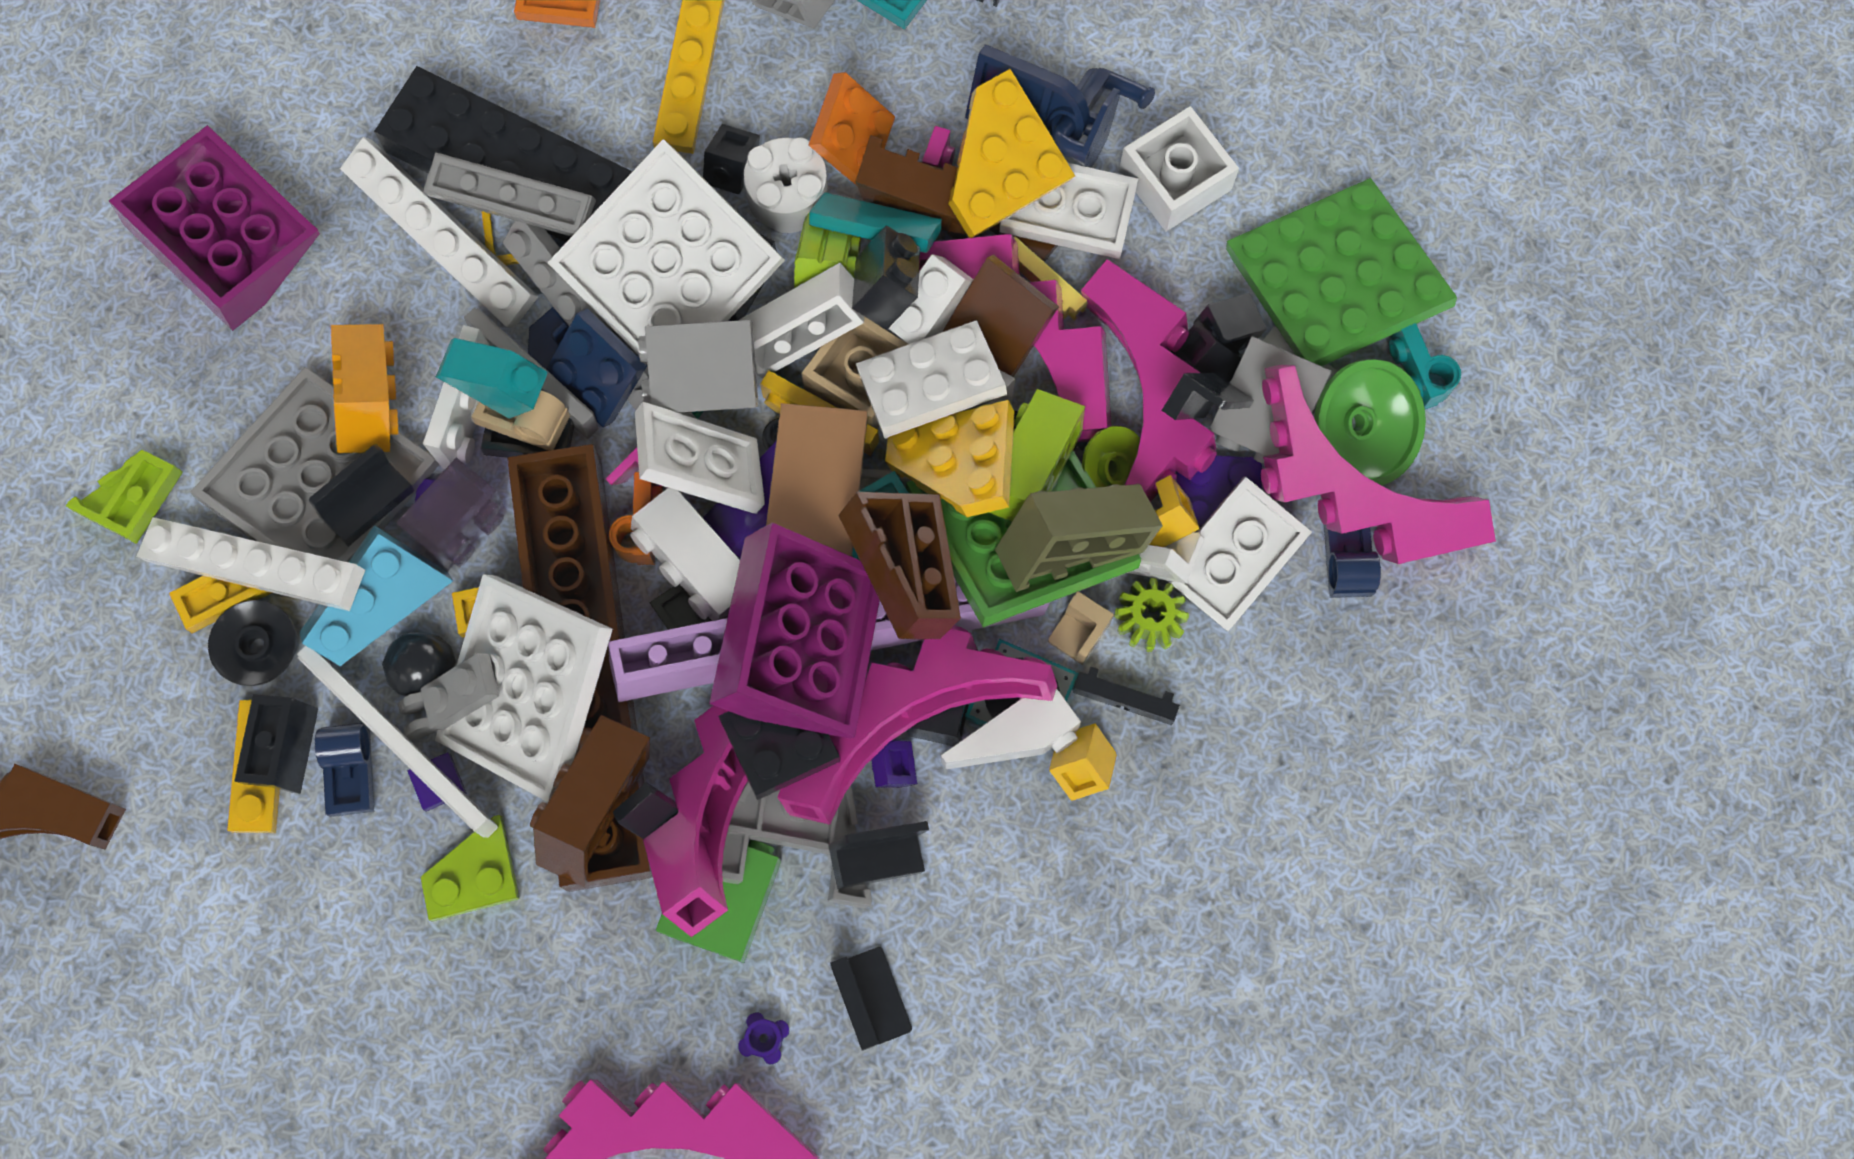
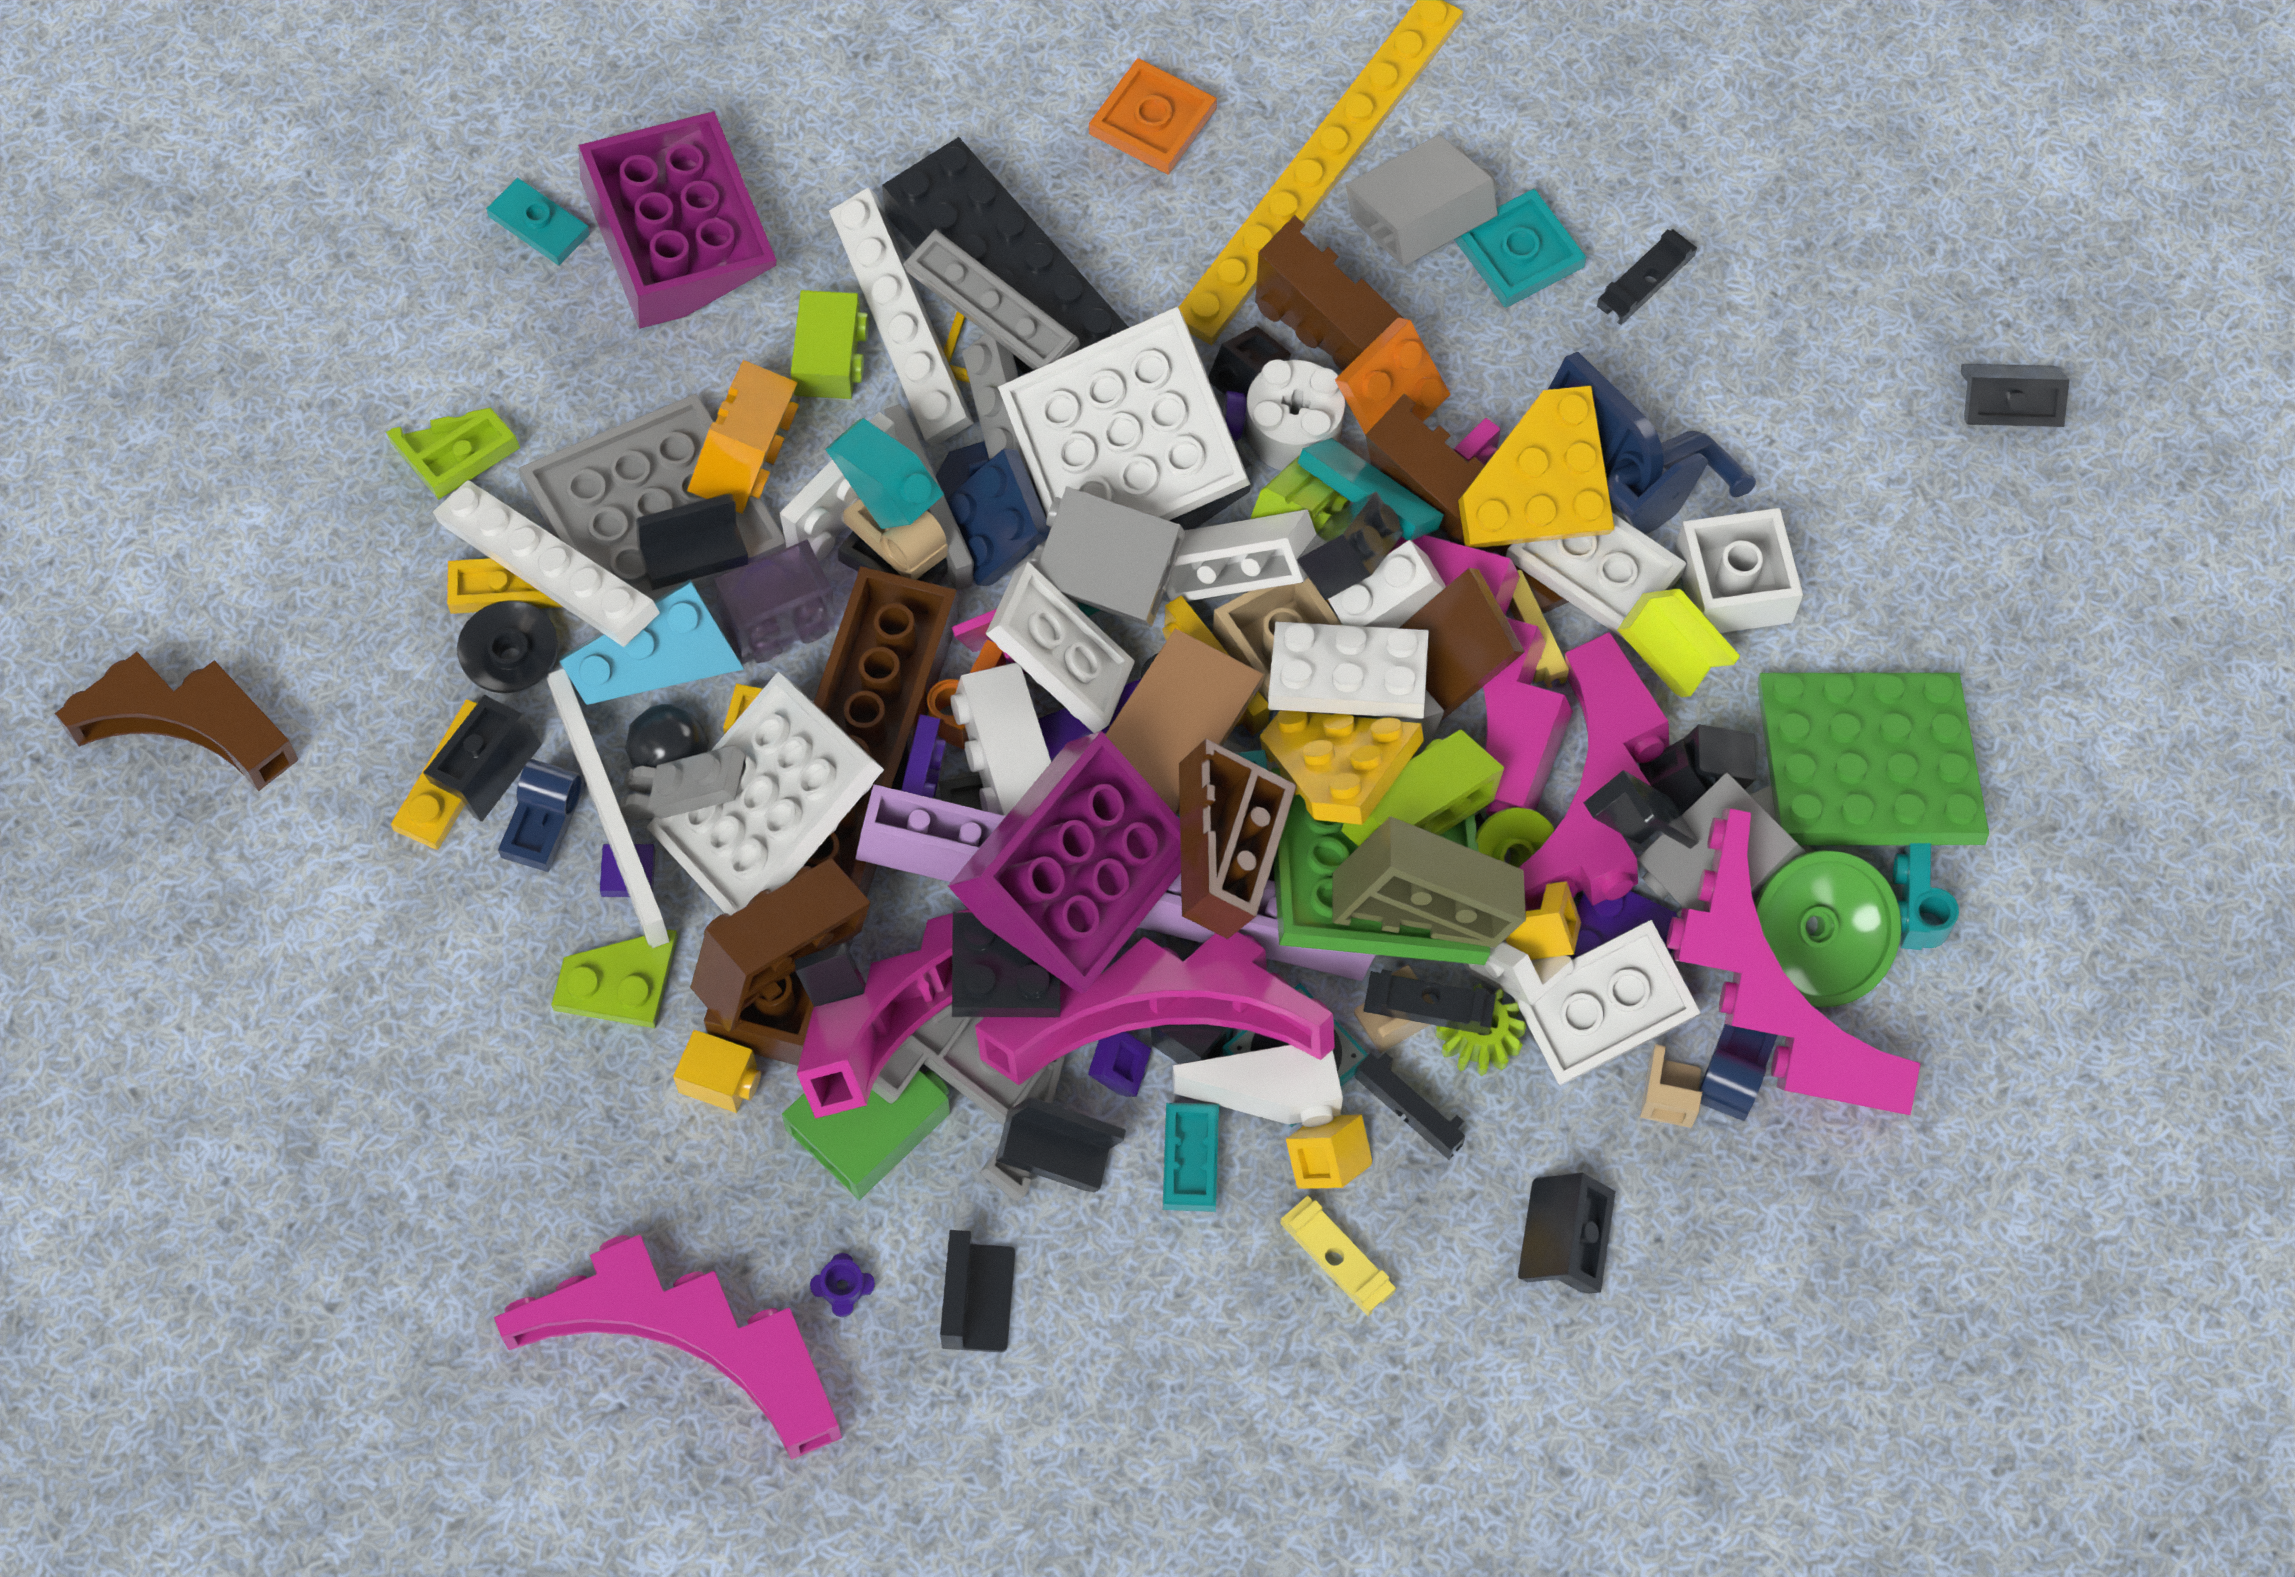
camera: 25 degrees right, 10 degrees down
(106, 275) = (538, 221): none -> teal plate
(391, 281) = (827, 344): none -> lime brick
(587, 915) = (717, 1071): none -> yellow brick
(634, 599) = (925, 759): none -> dark purple plate
(738, 199) = (1234, 413): none -> dark purple tile
(762, 83) = (1317, 298): none -> reddish brown wedge
(981, 814) = (1190, 1157): none -> teal plate
(1089, 621) = (1455, 1006): none -> black piece
(1145, 846) = (1321, 1236): none -> light yellow piece
(1157, 243) = (1676, 639): none -> neon yellow panel
(1284, 743) = (1567, 1231): none -> black panel
(1310, 597) = (1671, 1090): none -> tan panel

